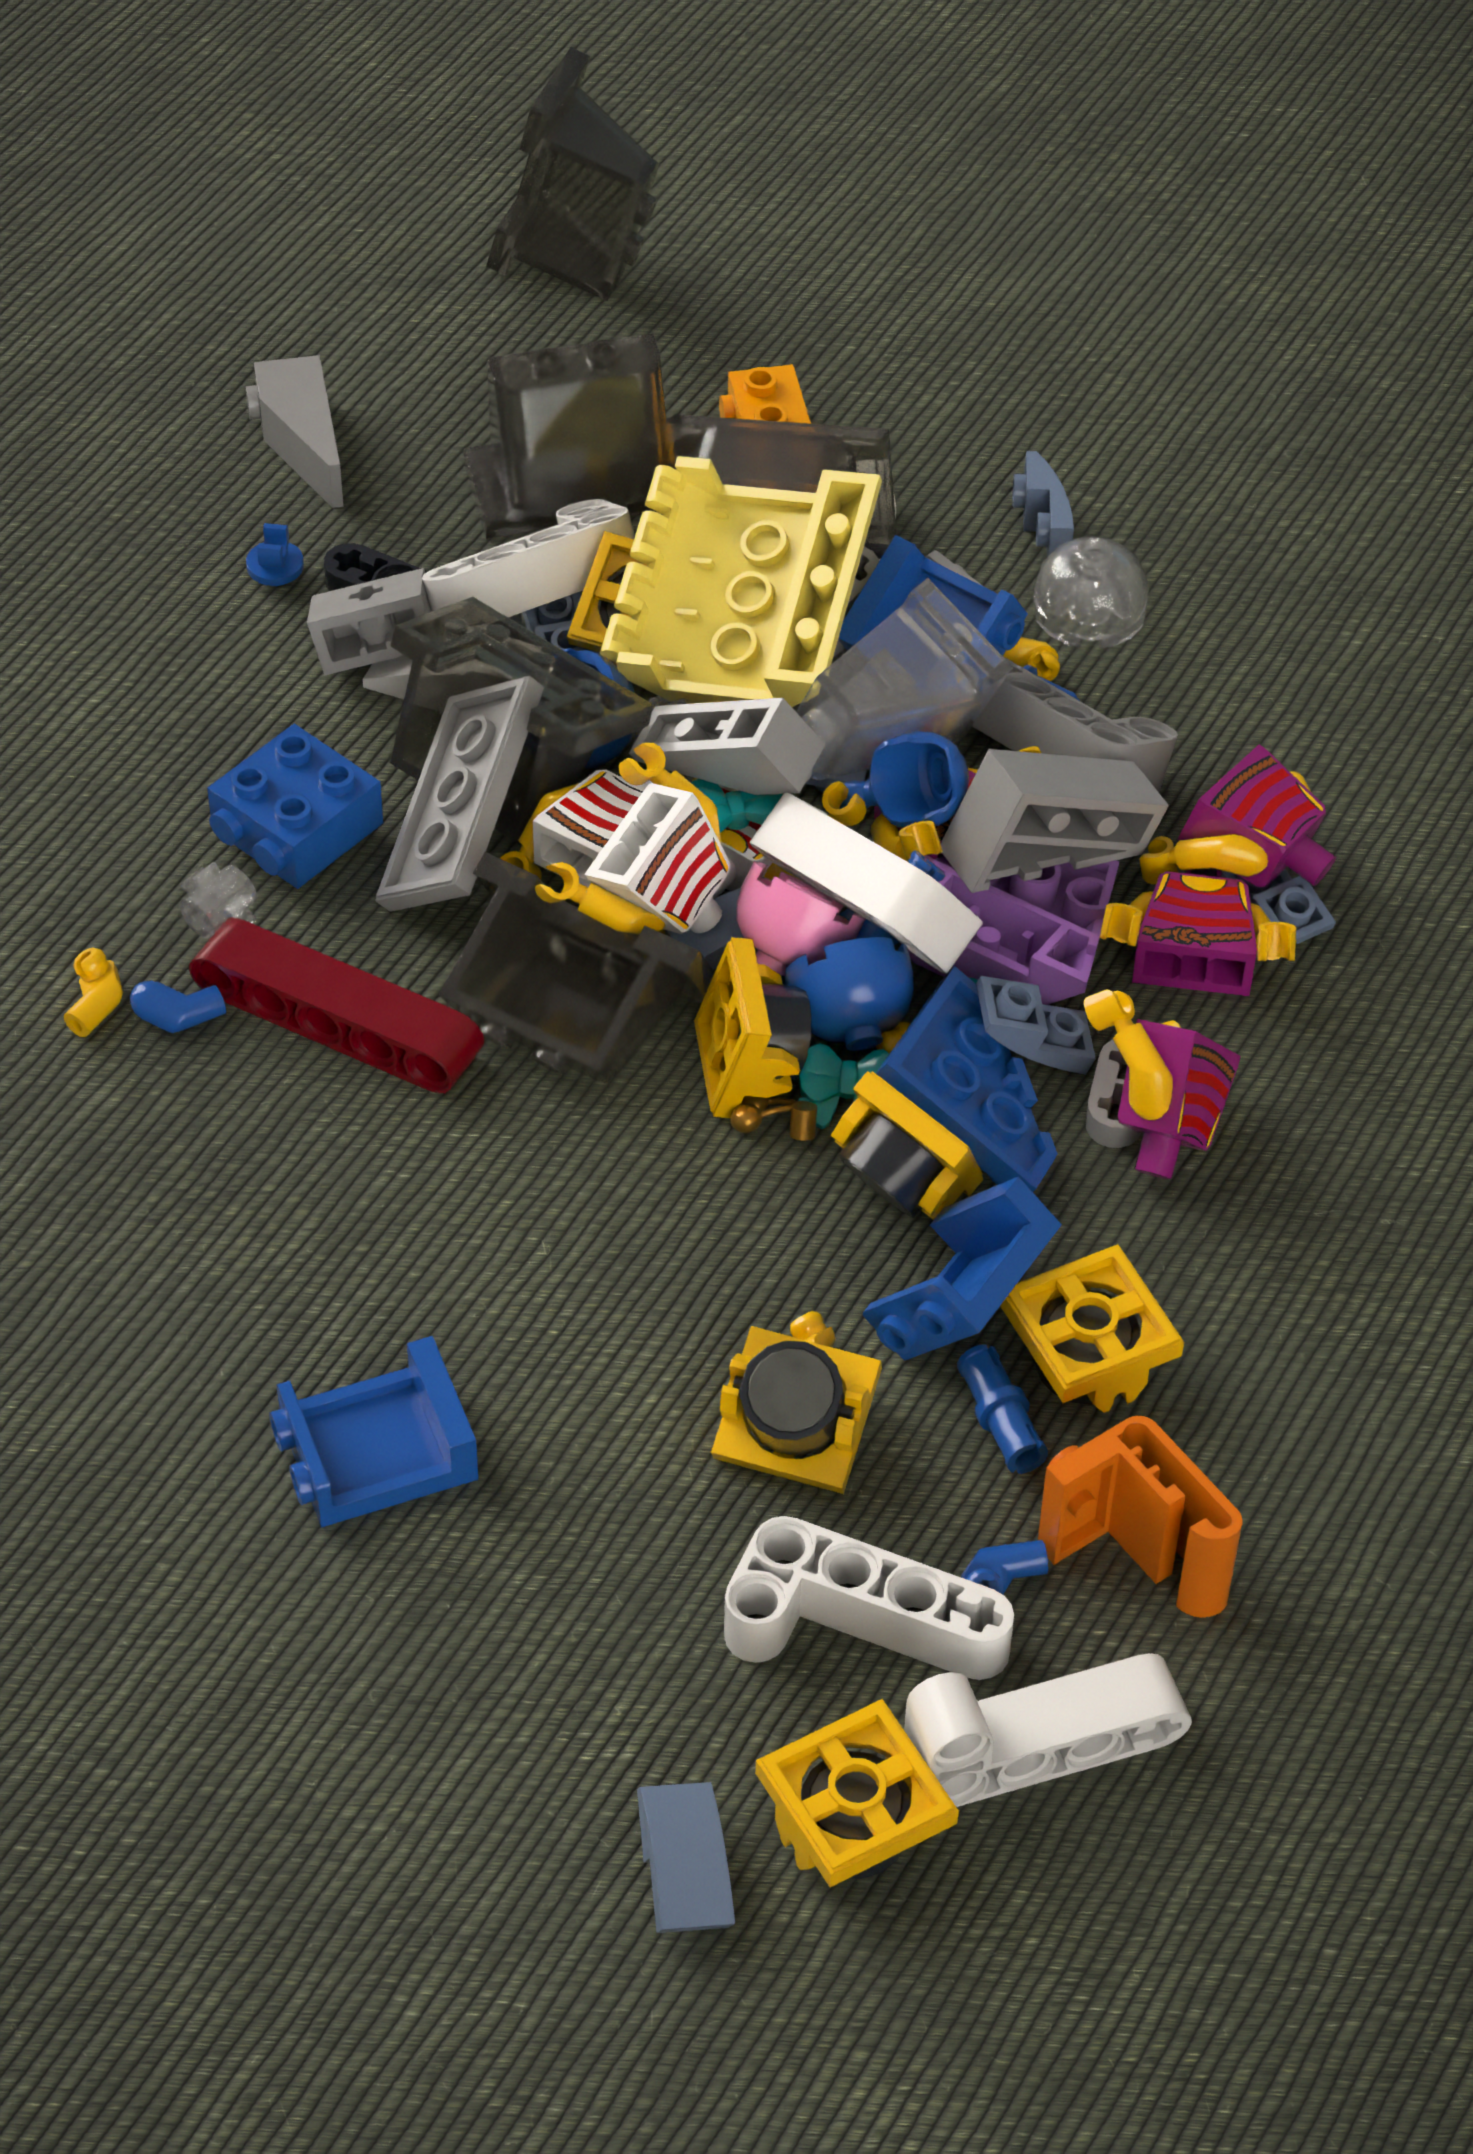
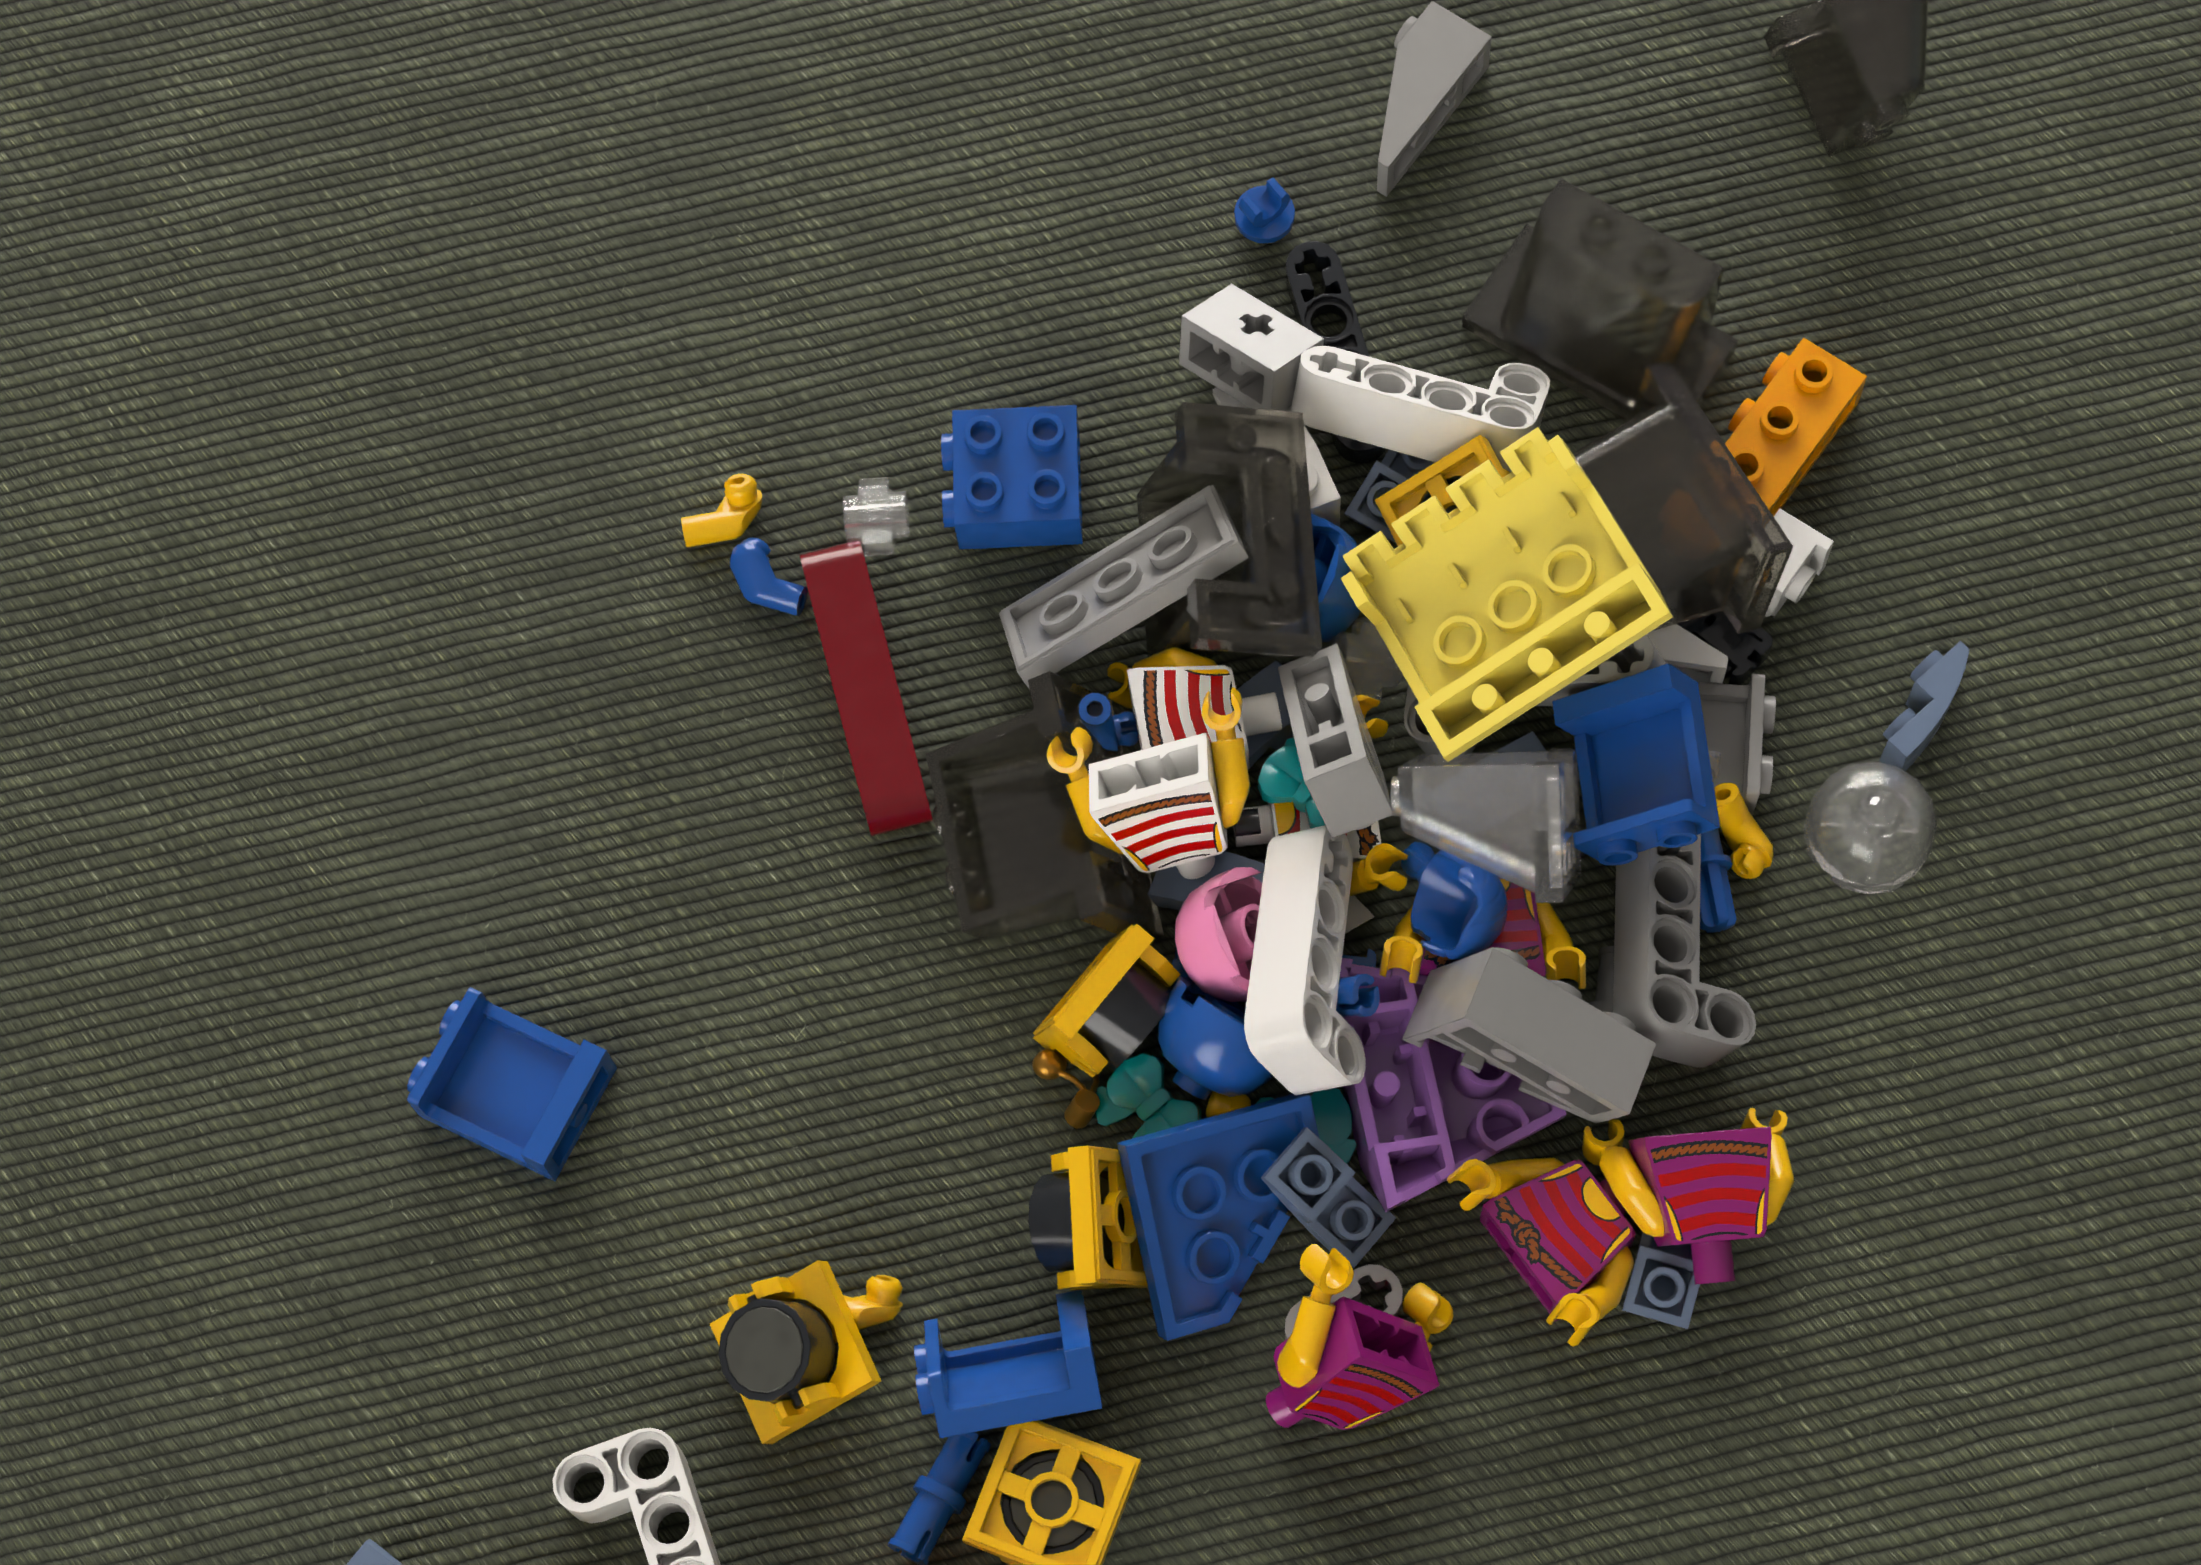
camera: 55 degrees right, 20 degrees up
(543, 852) = (1107, 728): none -> blue arm

